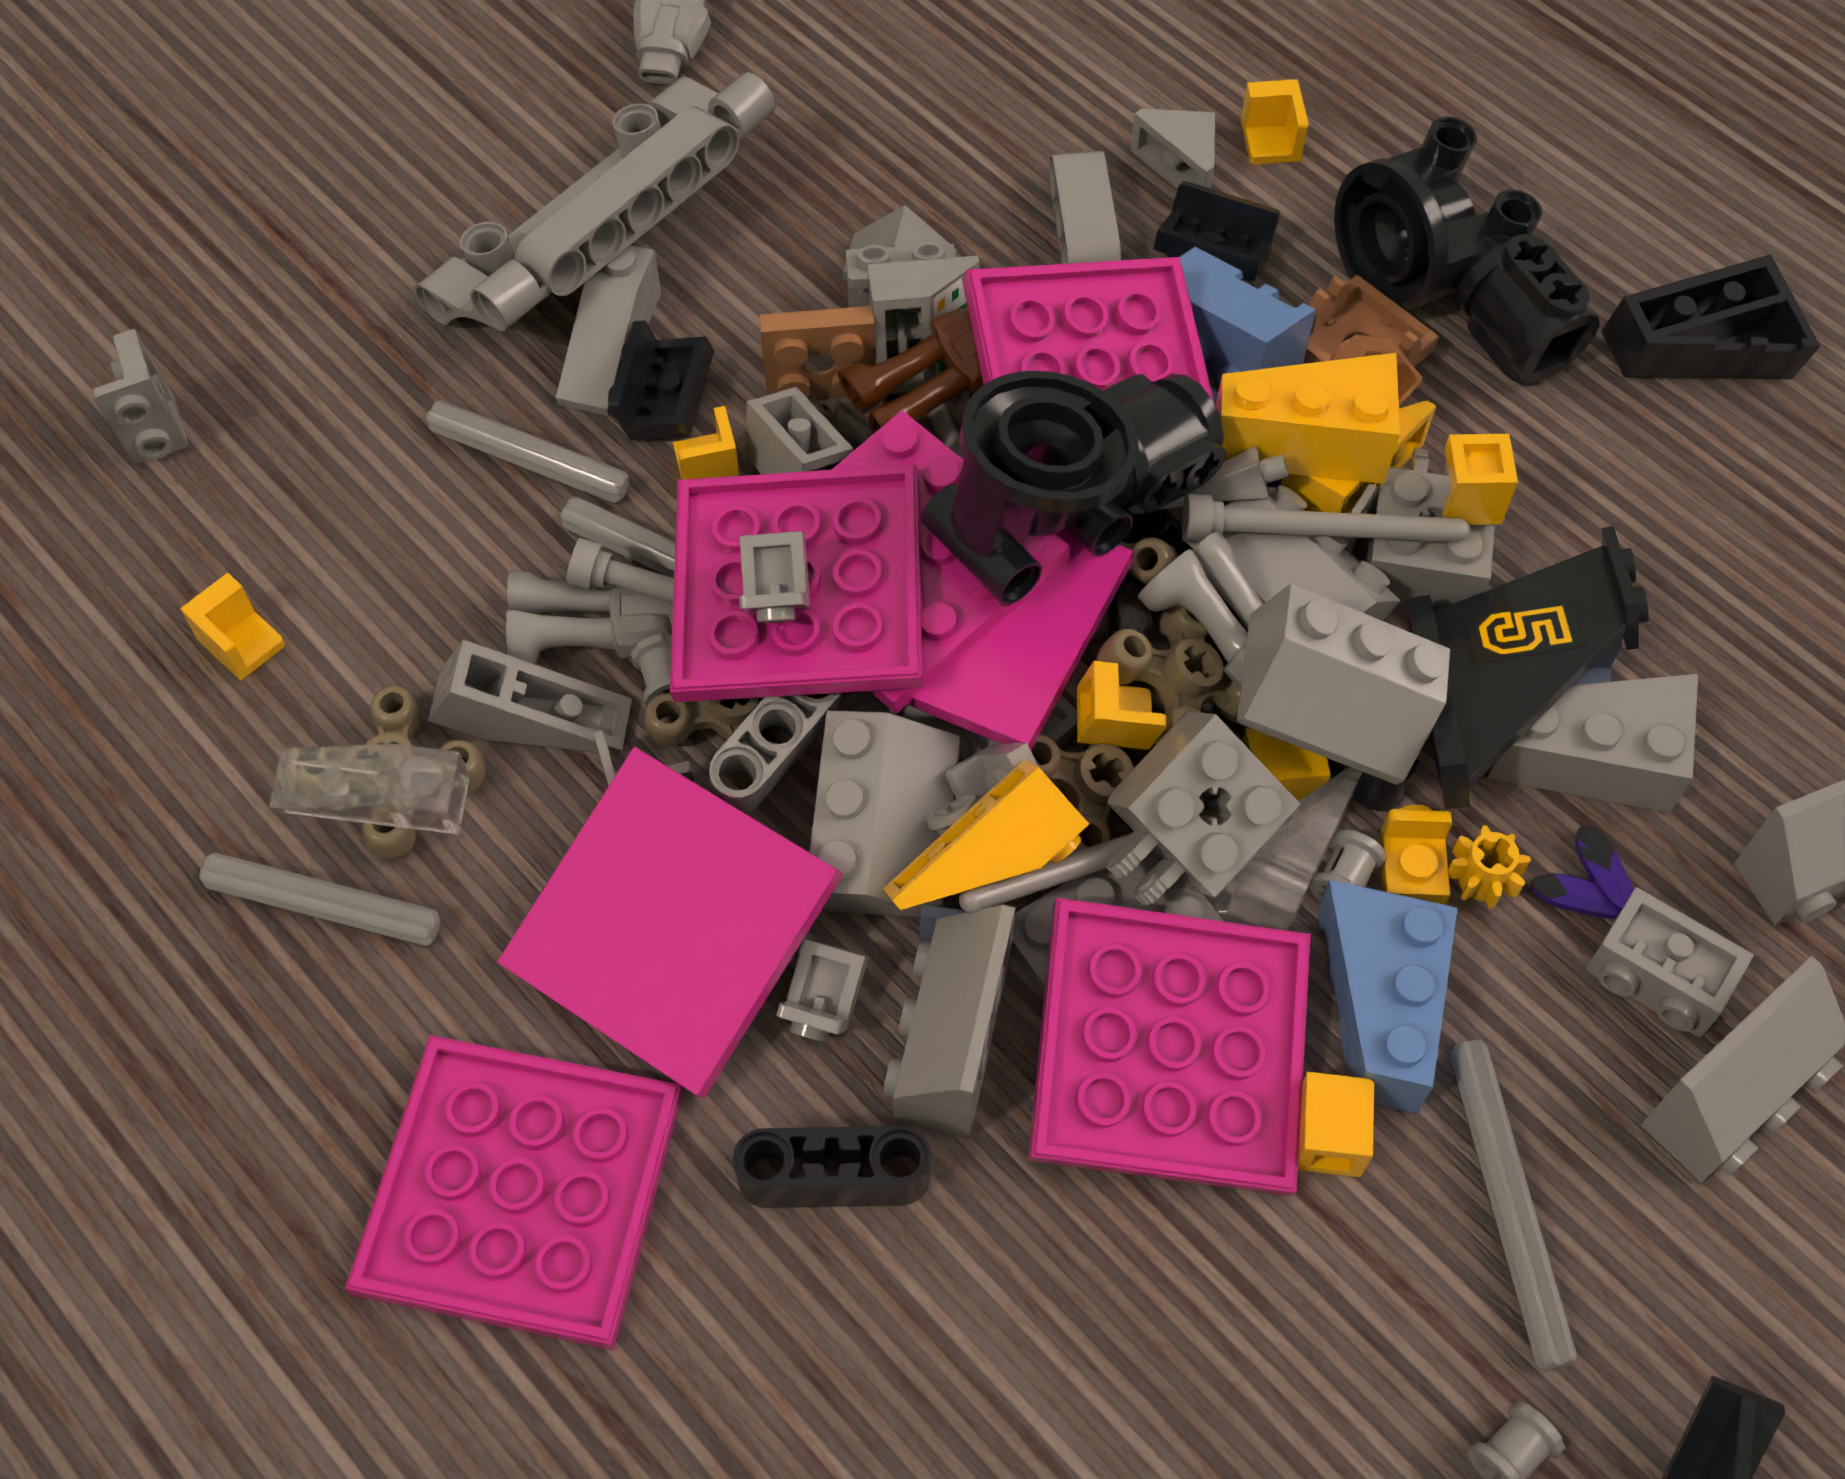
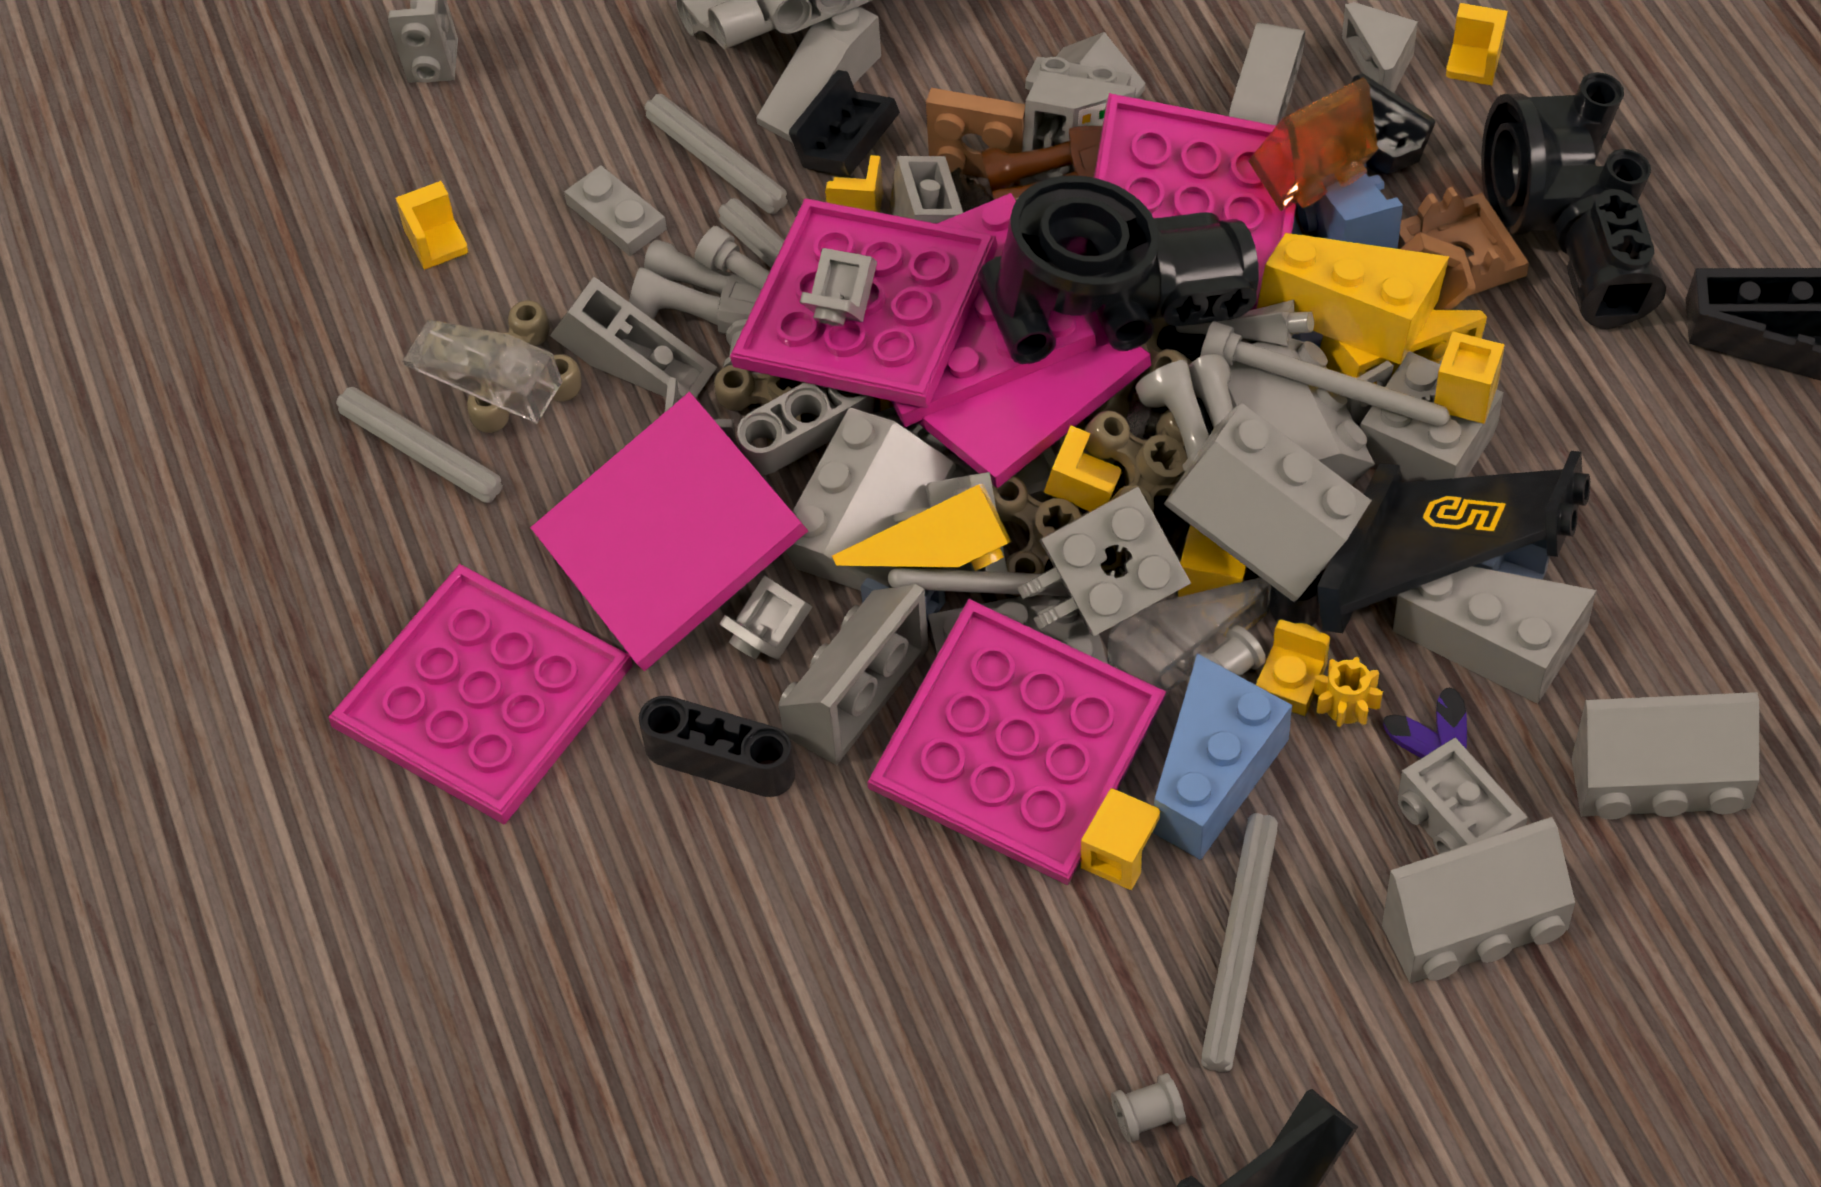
camera: 25 degrees right, 5 degrees down
(439, 548) = (615, 210): none -> light grey plate
(1213, 273) = (1318, 147): none -> clear orange slope

